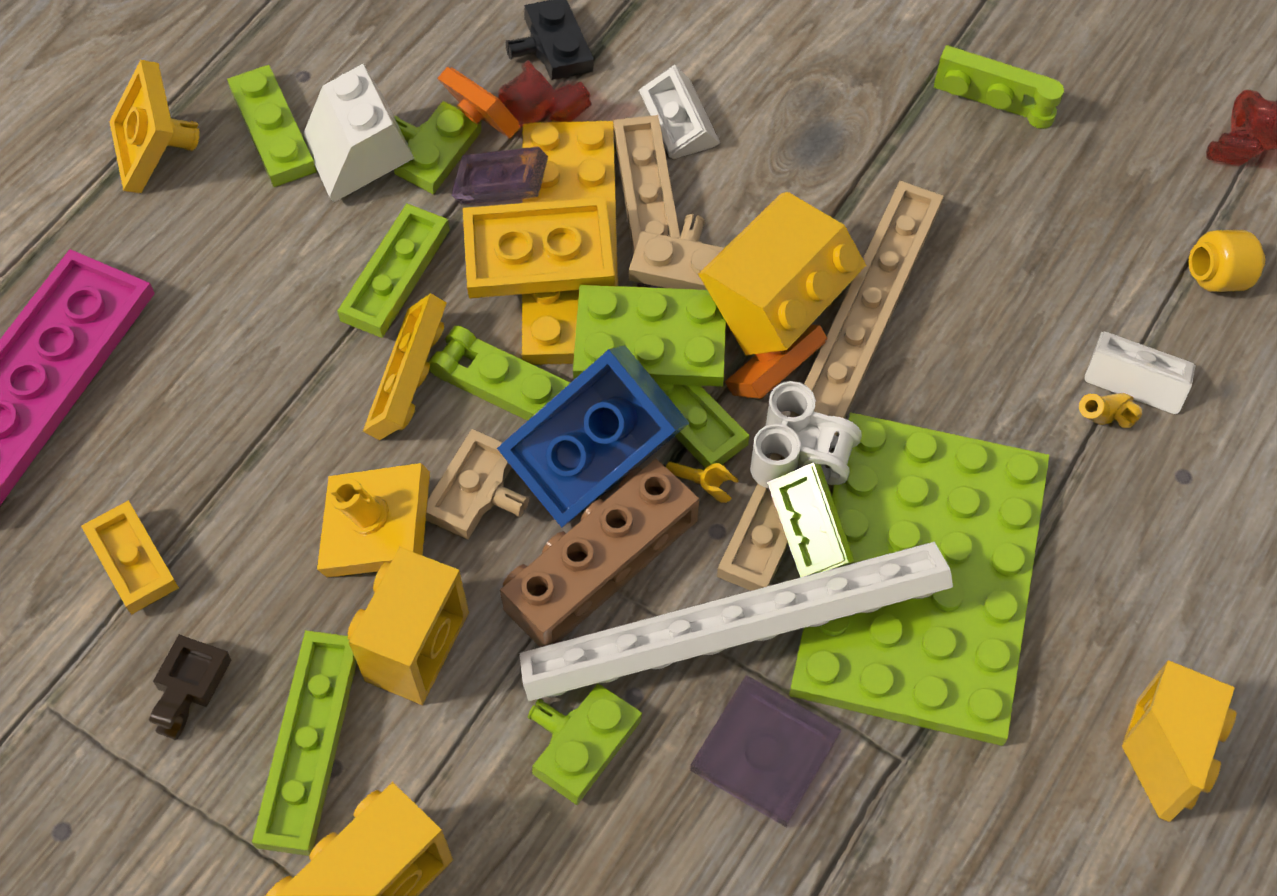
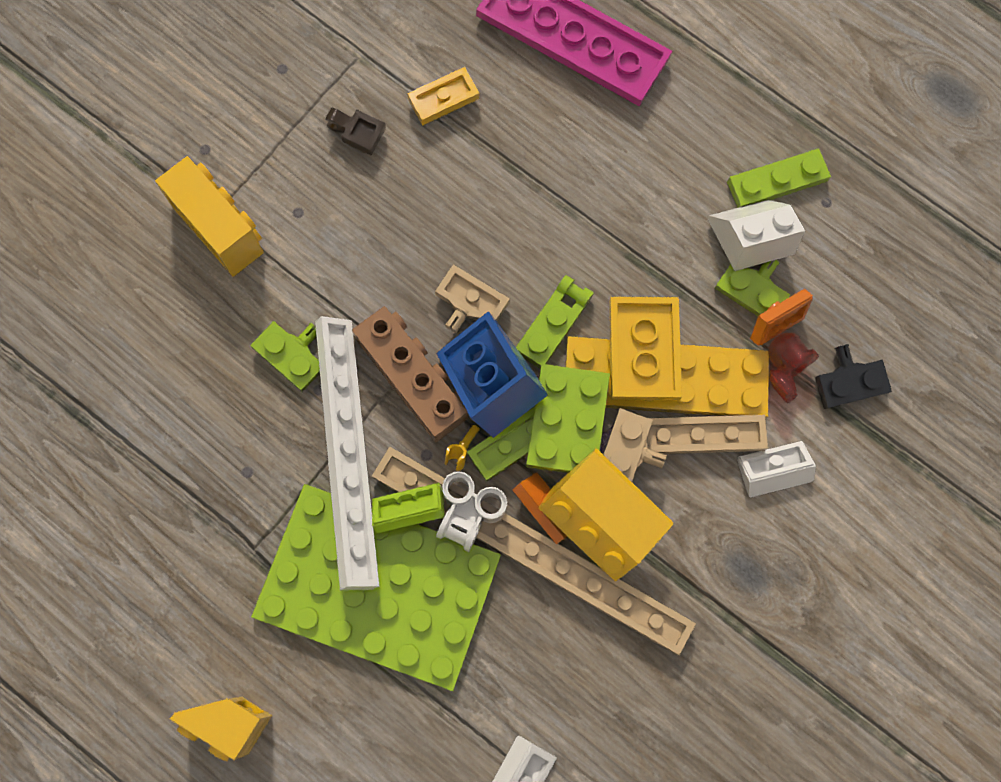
camera: 90 degrees right, 15 degrees up
(144, 127) = (767, 93): yellow tile -> none
(306, 745) = (311, 196): lime plate -> none
(372, 517) = (450, 236): yellow tile -> none
(393, 270) = (644, 256): lime plate -> none
(406, 368) = (562, 261): yellow plate -> none
(408, 624) = (366, 249): yellow brick -> none
(500, 175) = (715, 329): plate -> none
(765, 750) = (269, 464): clear purple tile -> none
(999, 85) = (786, 723): lime plate -> none
(1112, 407) = (486, 738): yellow arm -> none

